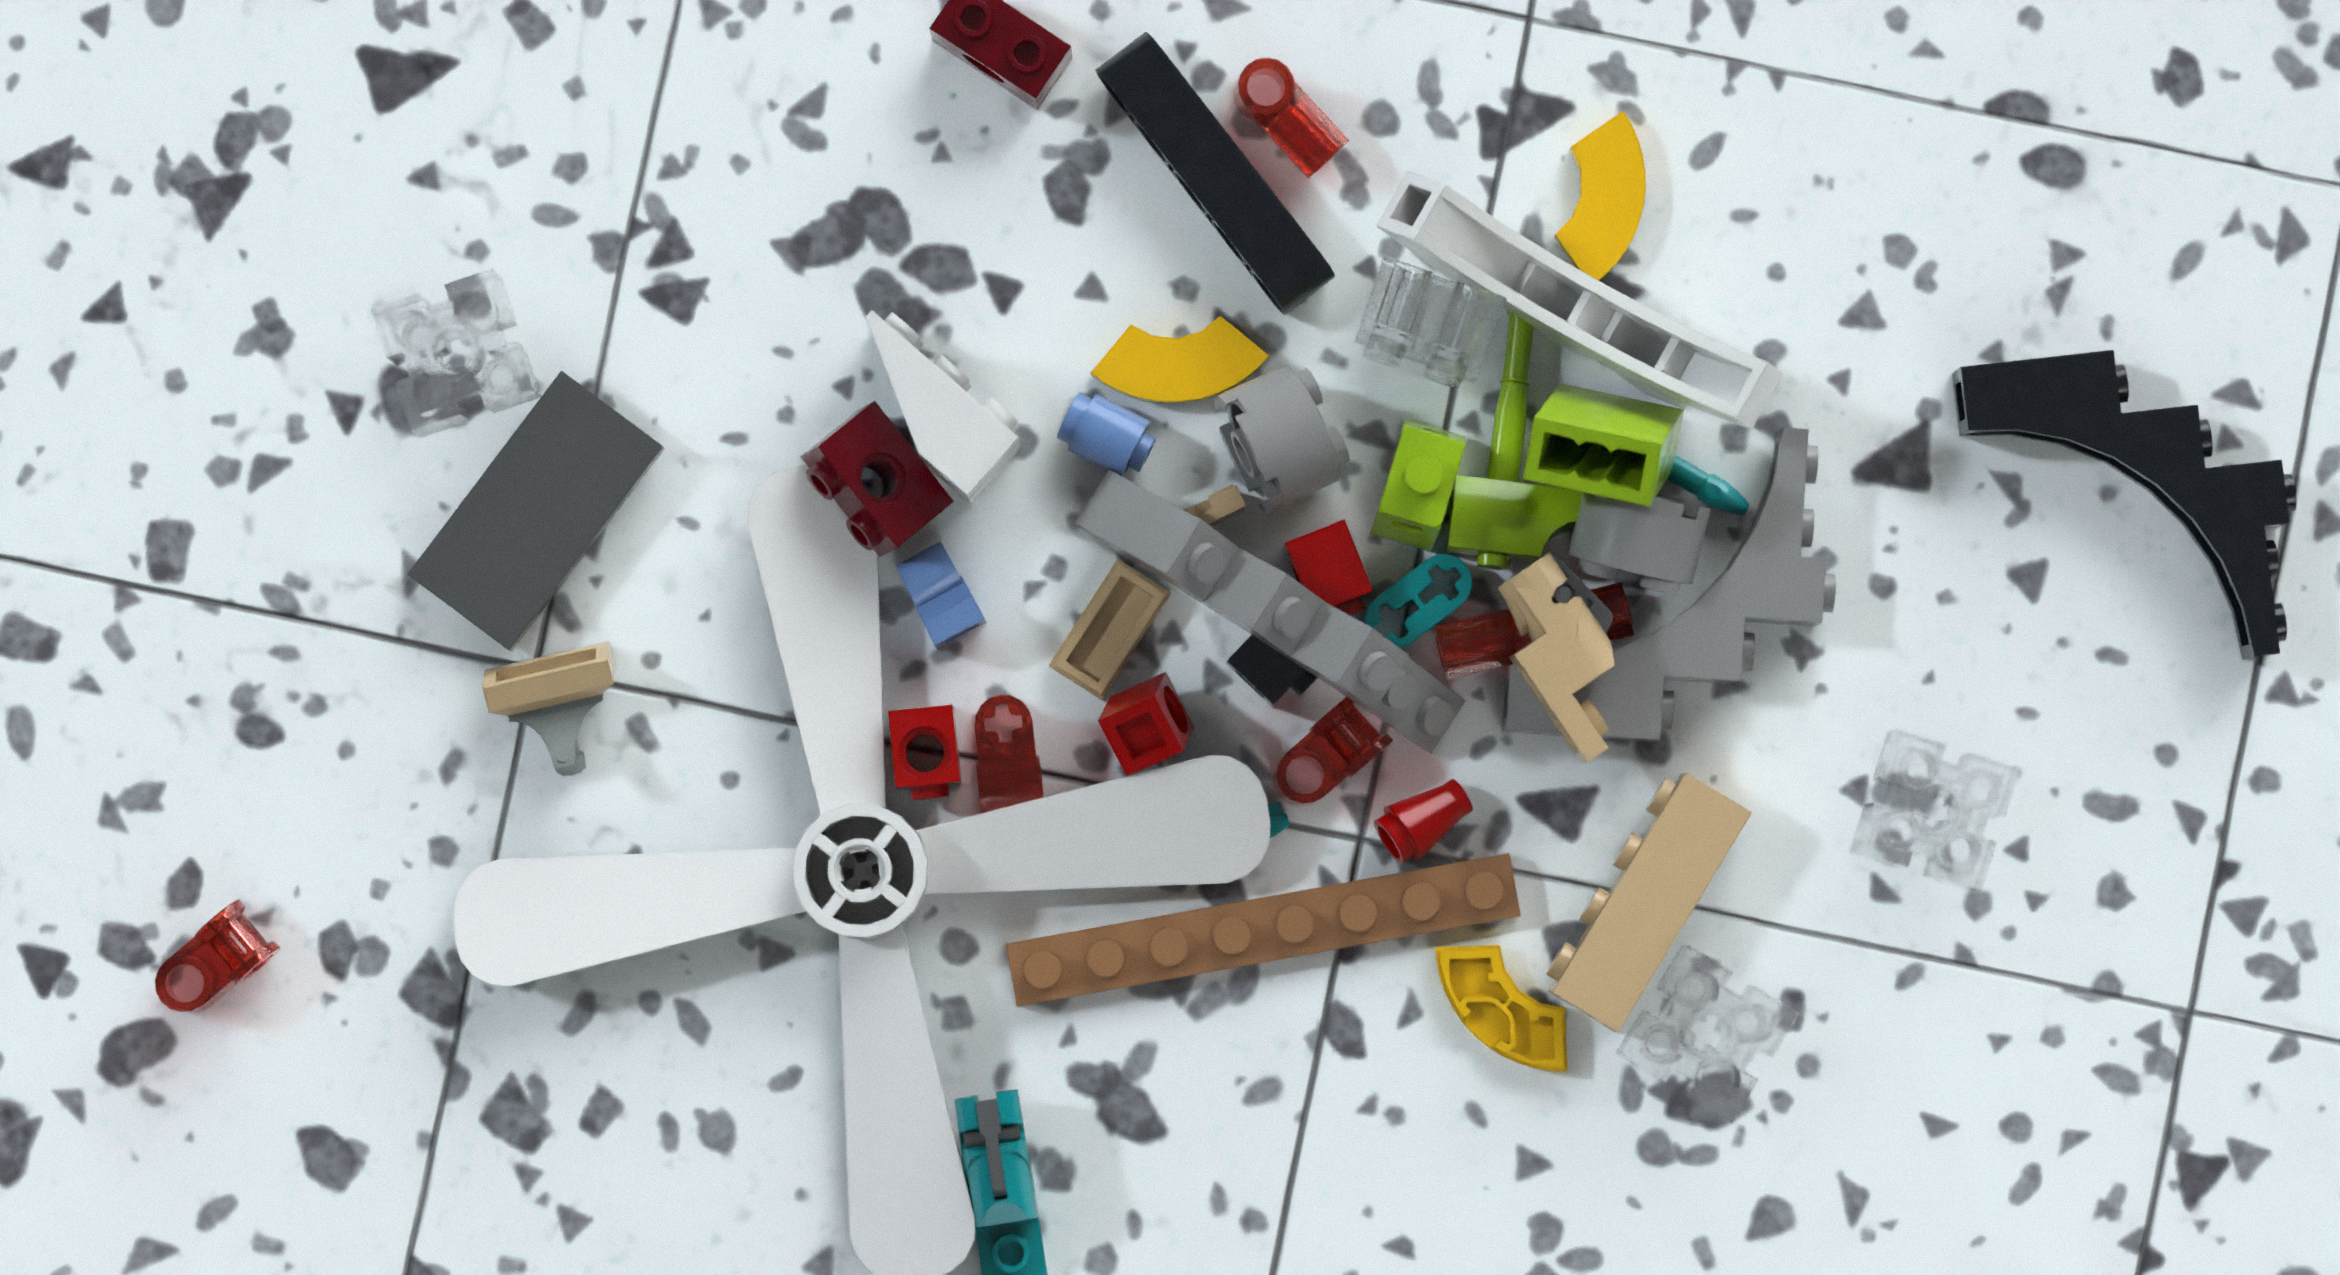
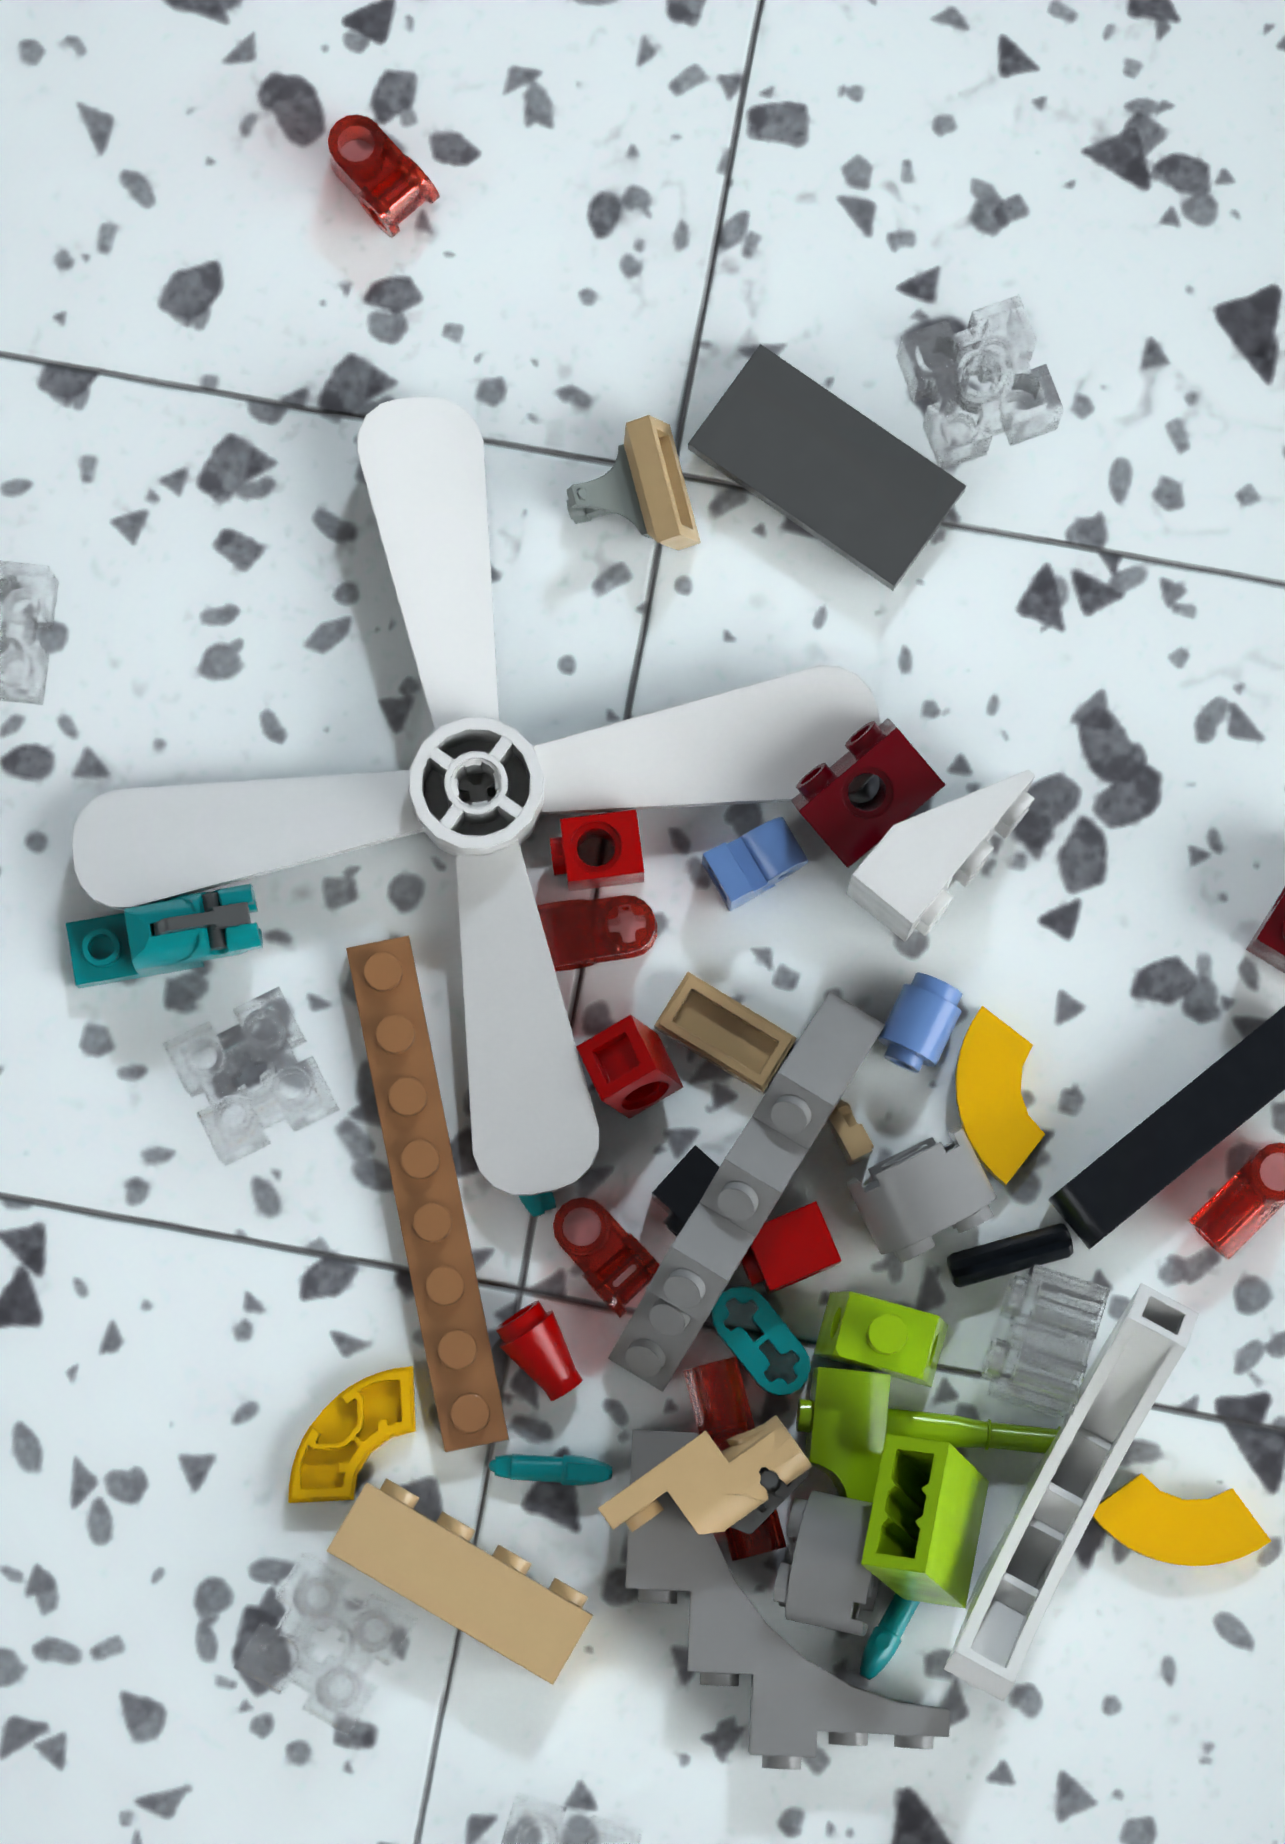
camera: 90 degrees right, 5 degrees down
(1132, 1140) = (214, 1061): none -> clear brick
(1338, 354) = (1010, 1255): none -> black axle
(1539, 798) = (566, 1470): none -> teal piece

